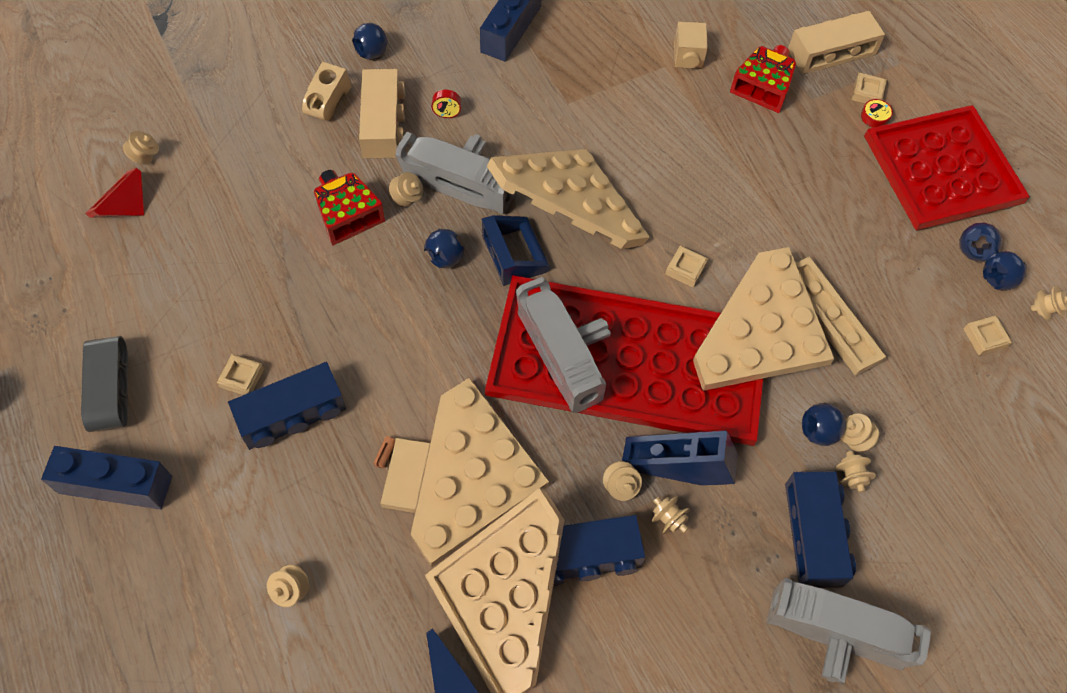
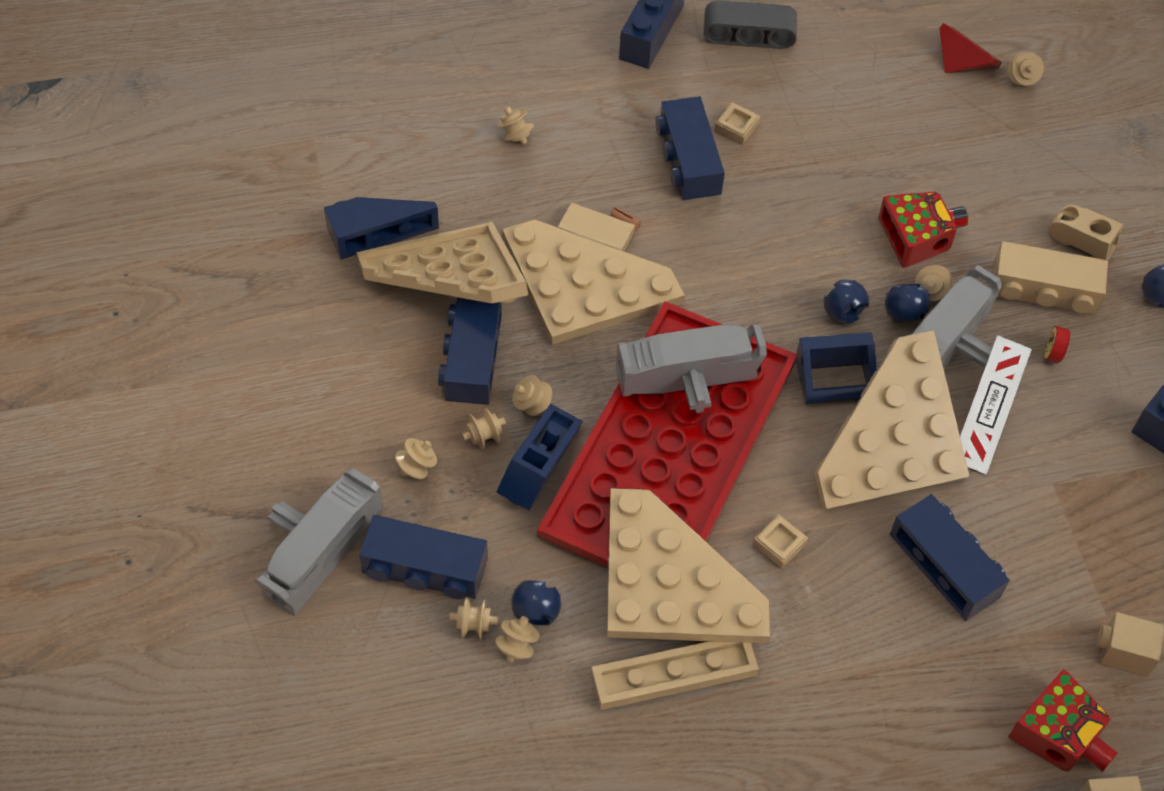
camera: 105 degrees right, 5 degrees down
(434, 203) = (907, 302): none -> dark blue piece
(513, 135) = (993, 402): none -> white sticker
(663, 152) = (949, 556): none -> dark blue brick
(724, 566) = (416, 458): none -> tan wheel

